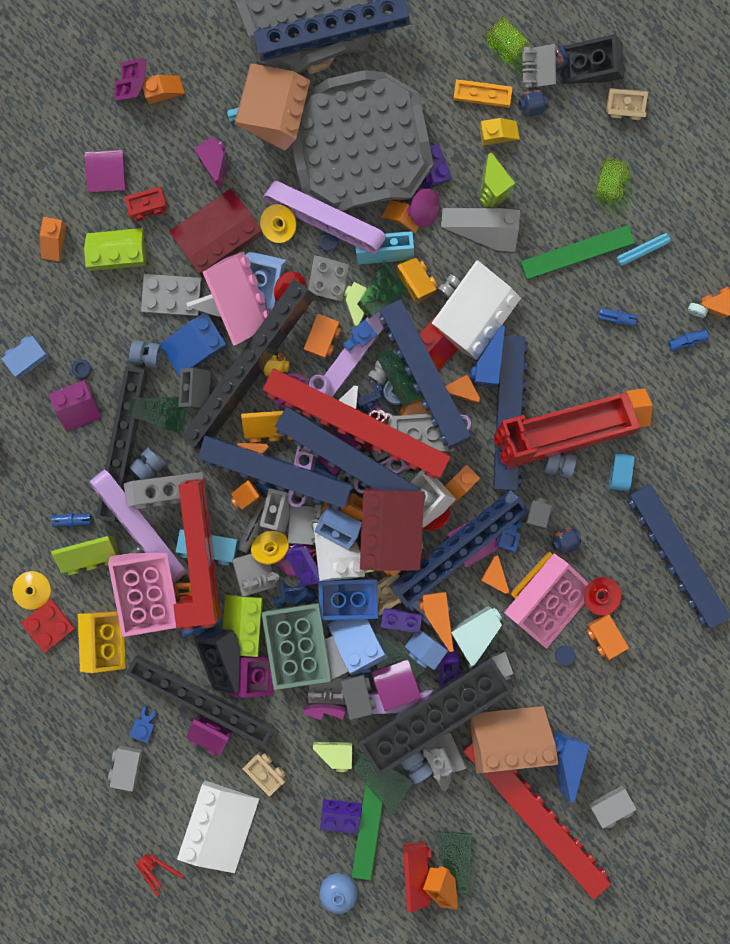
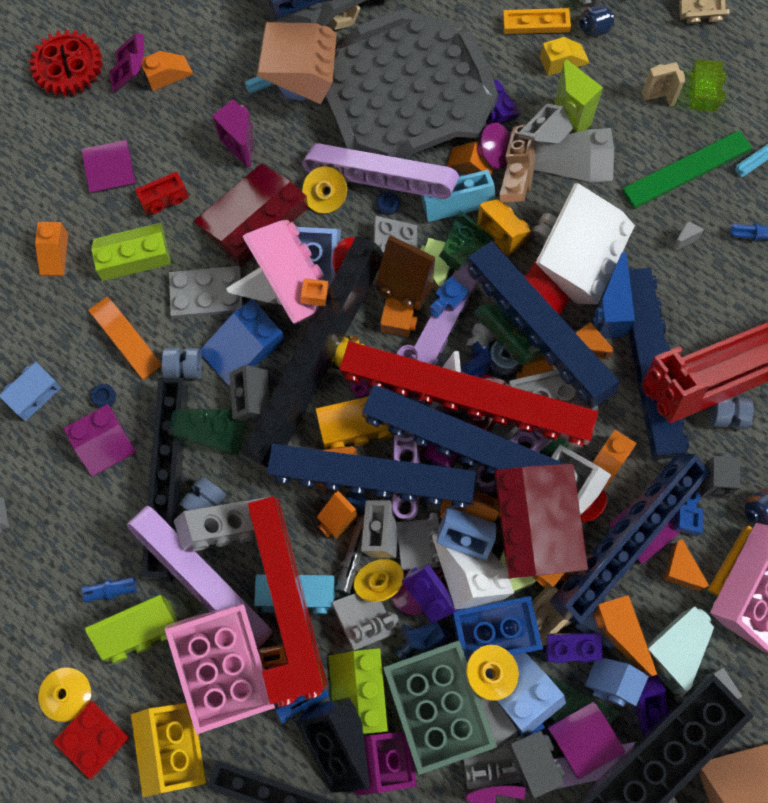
camera: 10 degrees left, 15 degrees down
(96, 64) = (82, 59): none -> red gear
(102, 323) = (125, 338): none -> orange slope
(253, 321) = (314, 292): none -> orange plate
(326, 318) = (405, 273): none -> reddish brown slope
(346, 633) = (503, 669): none -> yellow dish
(440, 228) = (519, 168): none -> medium nougat slope
(466, 203) = (548, 125): none -> light grey slope
(563, 311) = (688, 235): none -> light grey slope
(574, 172) = (664, 81): none -> tan bracket

